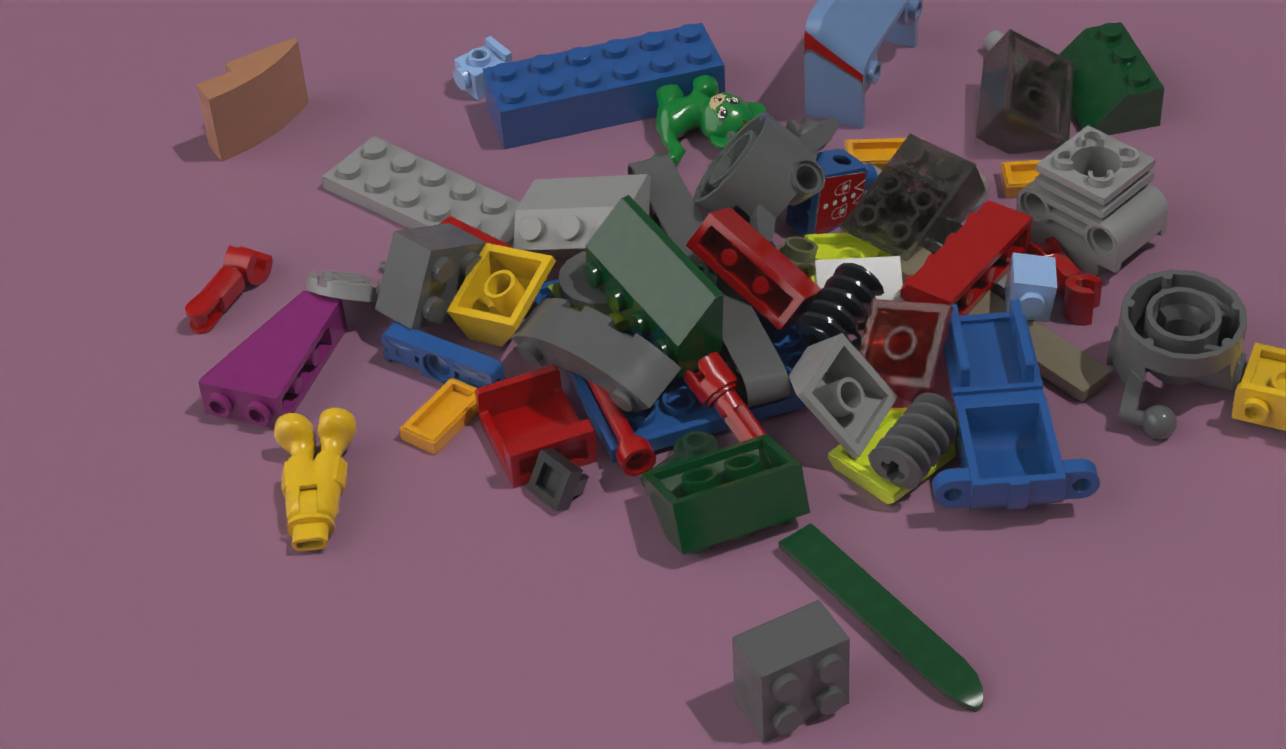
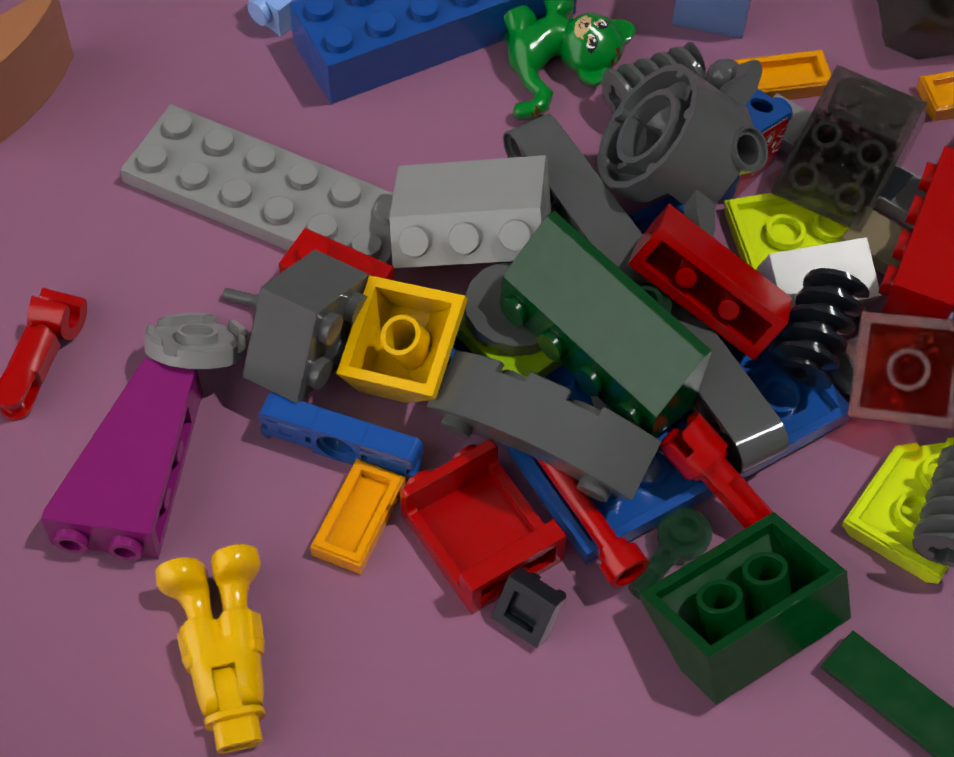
camera: 15 degrees left, 15 degrees up
(800, 252) = (737, 234): olive plate -> none
(842, 392) = (850, 443): light grey slope -> none

